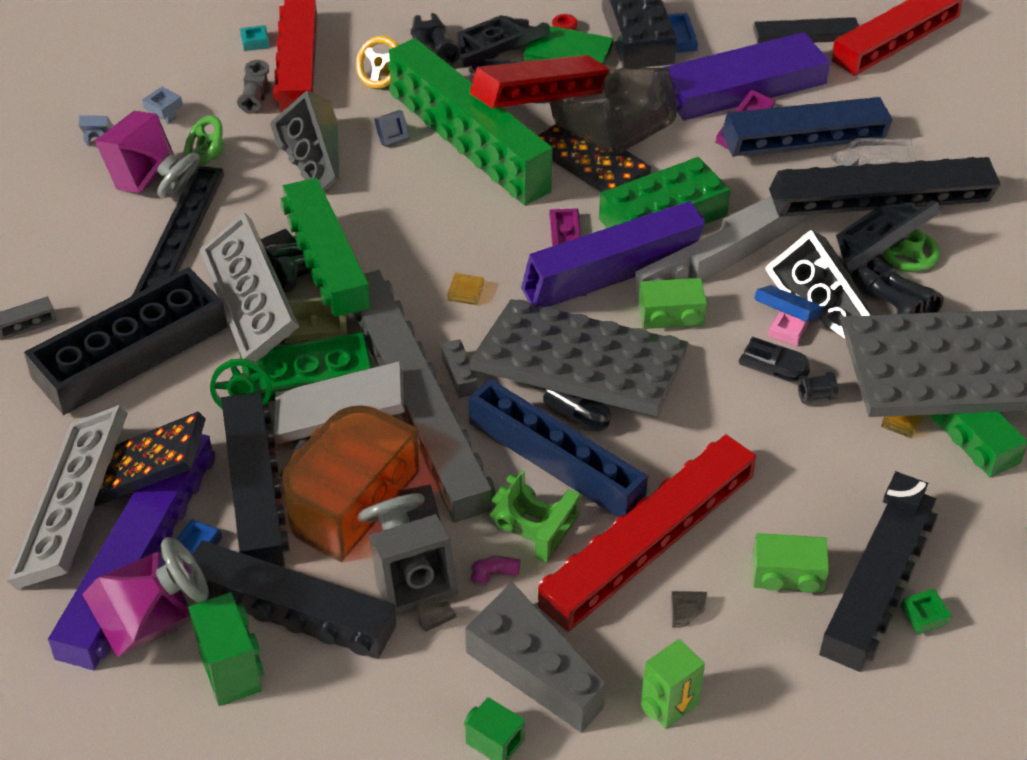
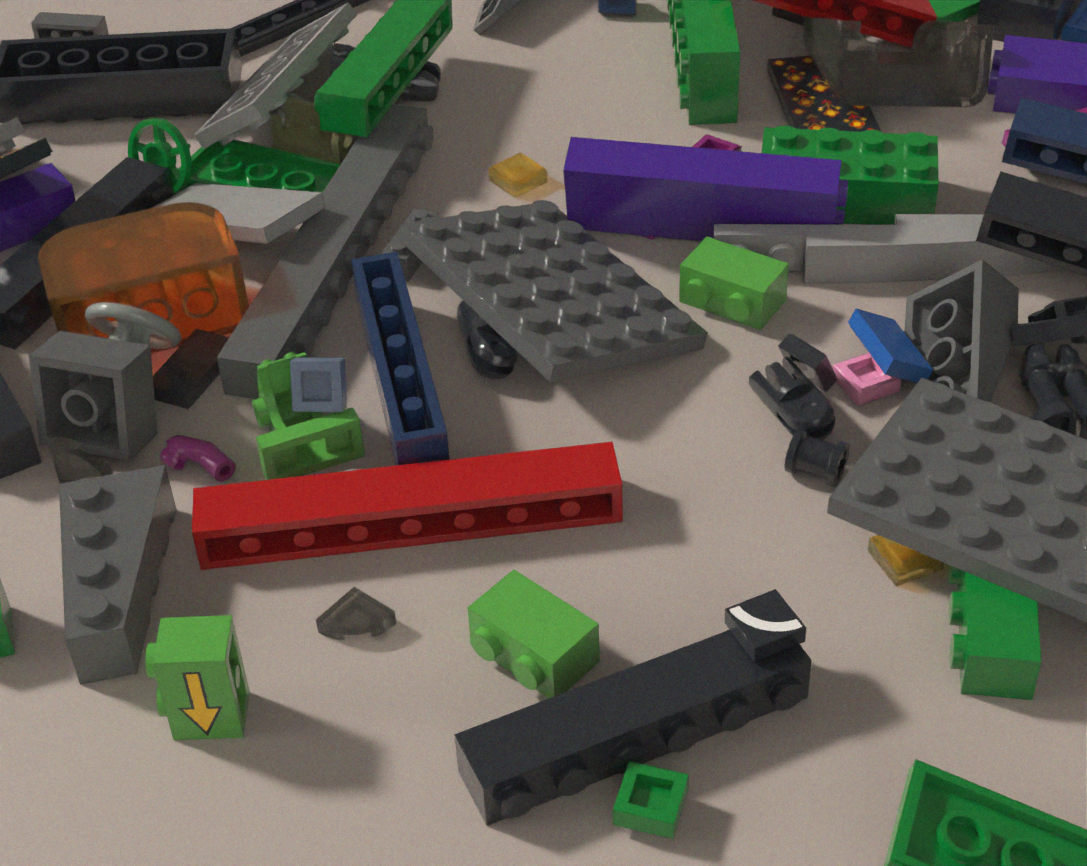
camera: 40 degrees right, 5 degrees down
(547, 485) = (318, 384): none -> sand blue tile
(761, 331) = (809, 360): none -> black tile

